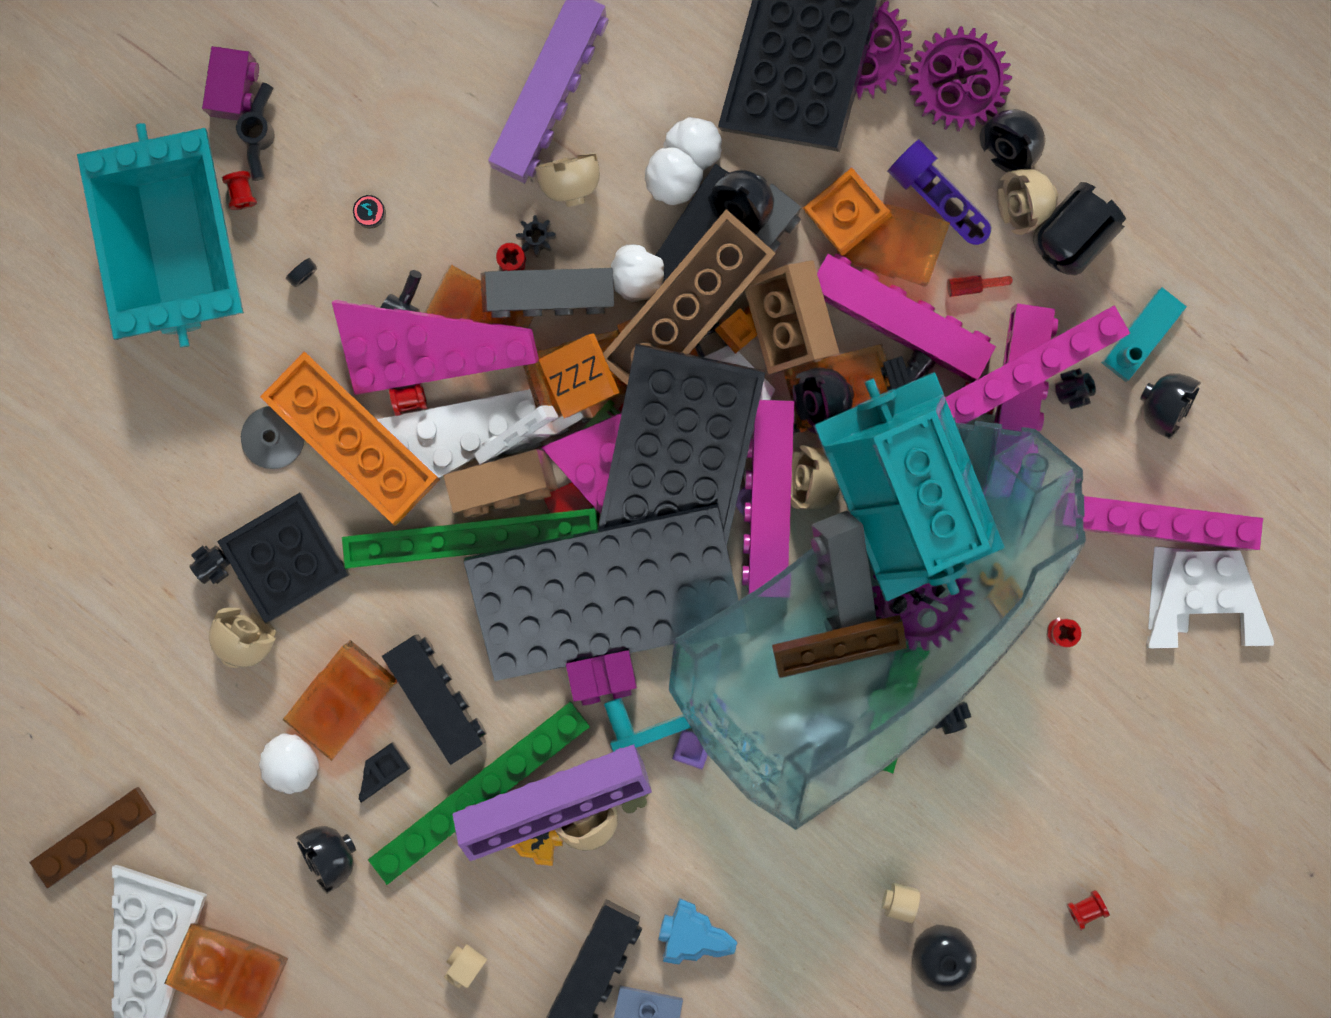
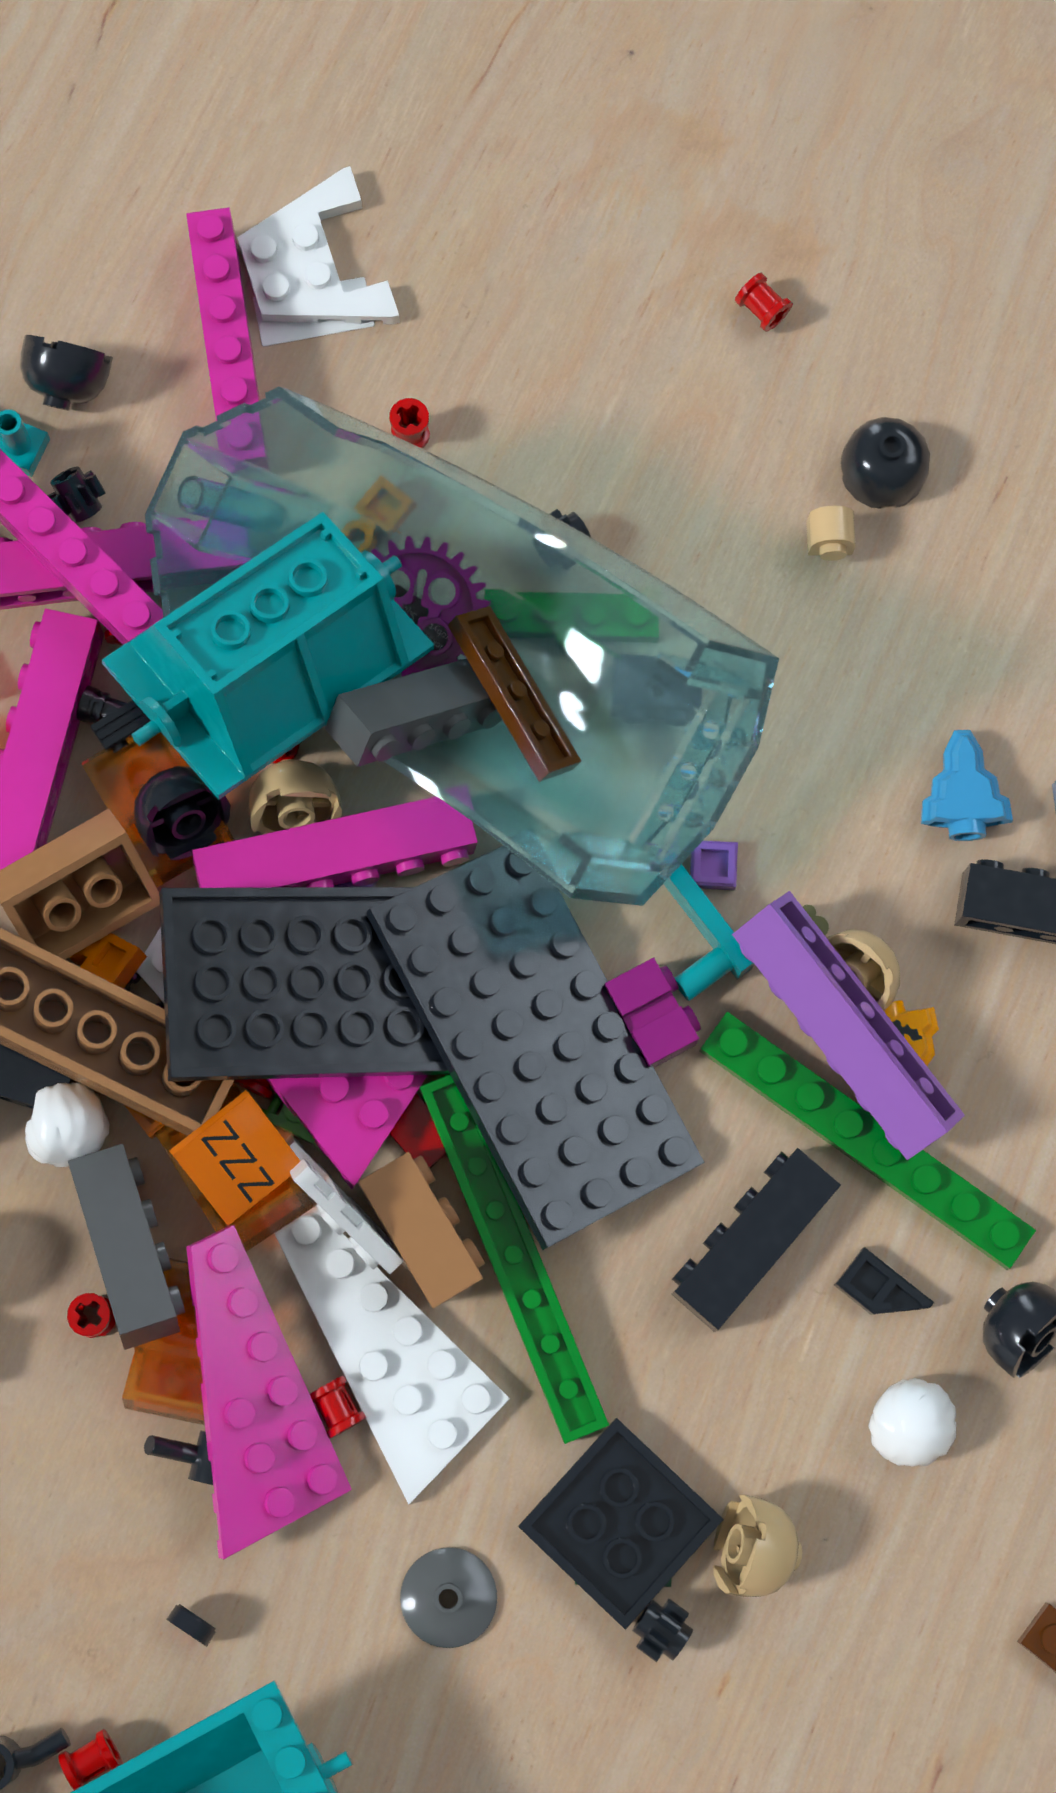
camera: 110 degrees left, 10 degrees down
(340, 699) = (799, 1375): clear orange slope -> none
(350, 438) = (417, 1474): orange plate -> none
(369, 211) = (73, 1551): black tile -> none
(529, 231) = (37, 1282): black gear -> none

